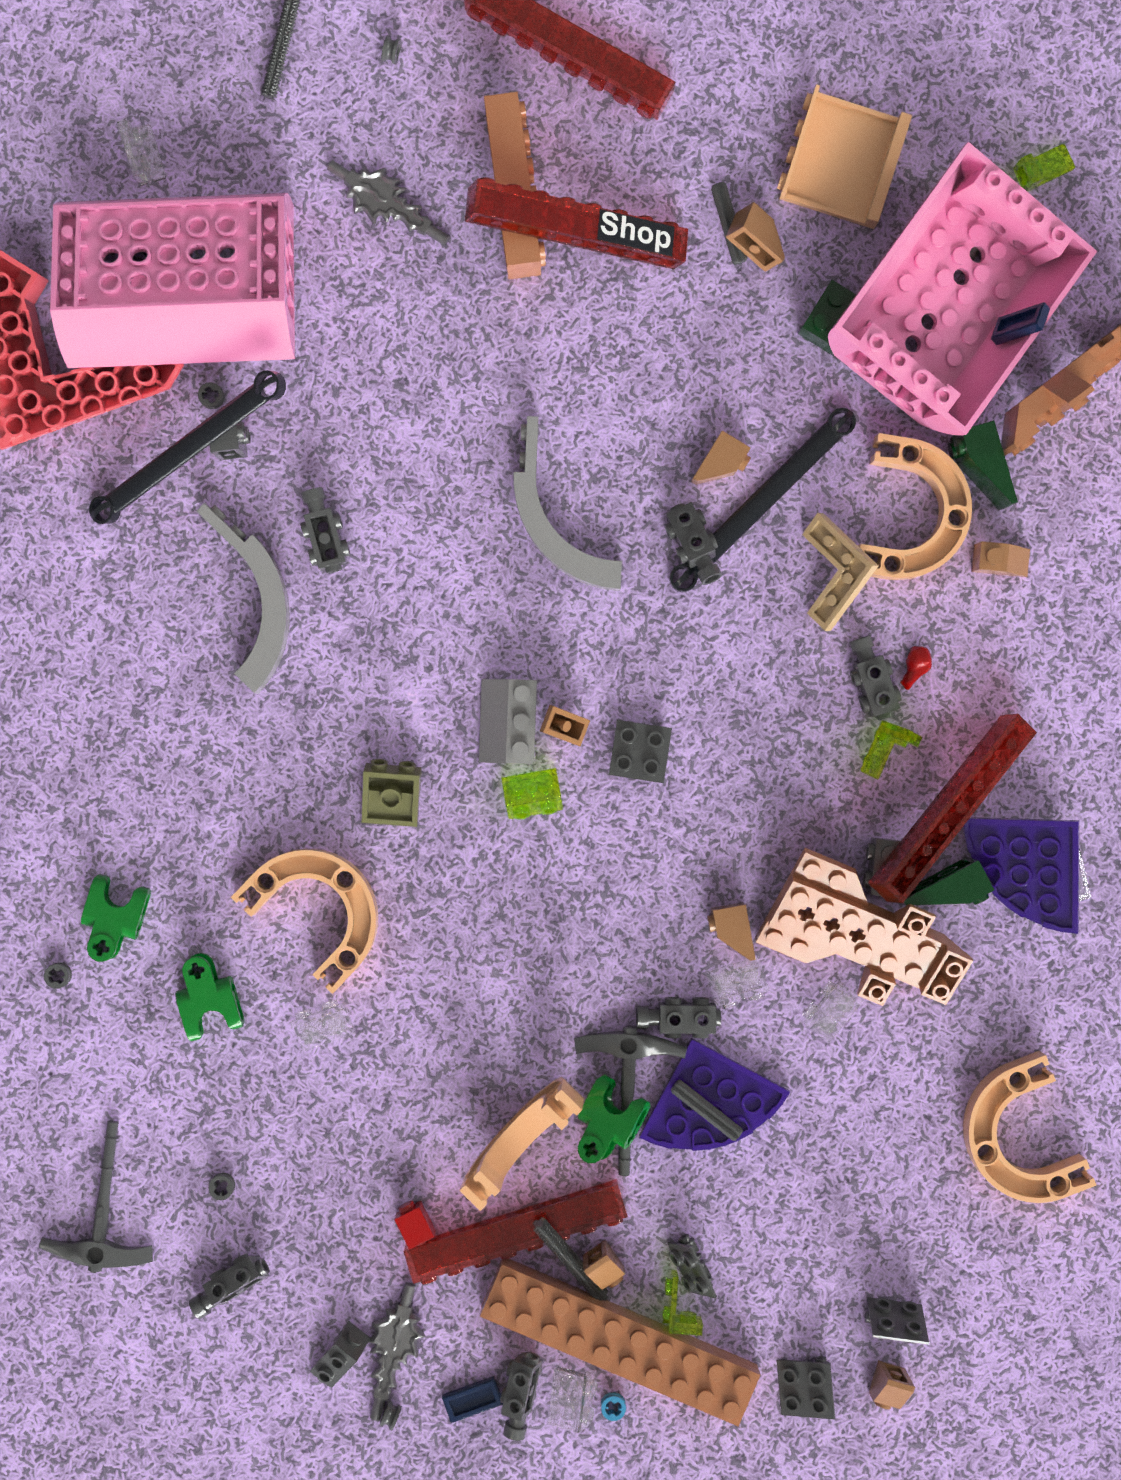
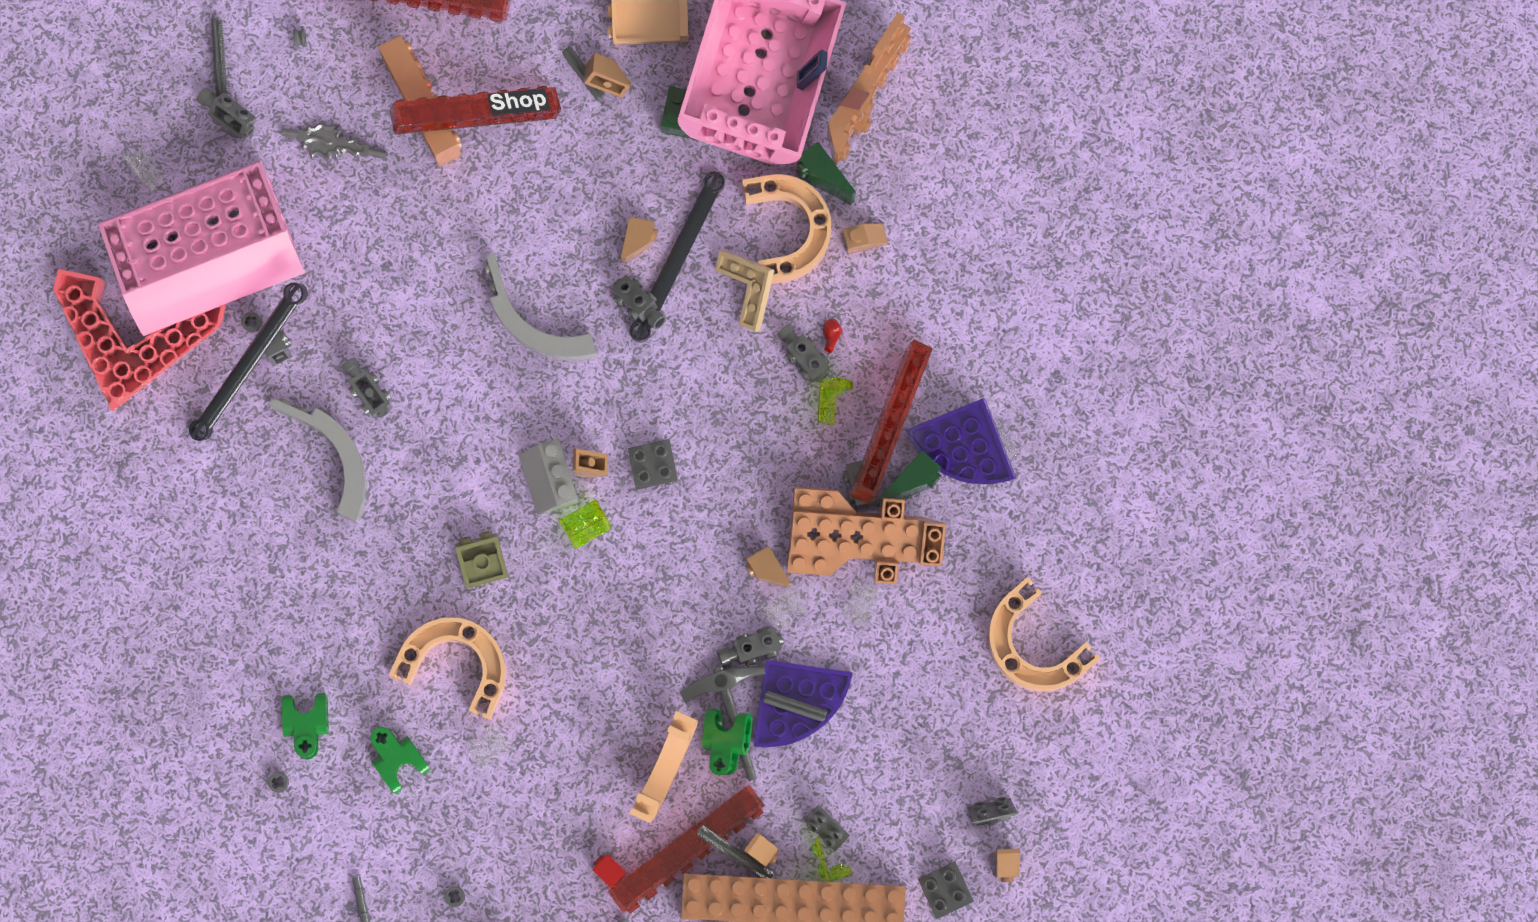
camera: 20 degrees left, 10 degrees down
(268, 116) = (228, 113): none -> dark grey brick

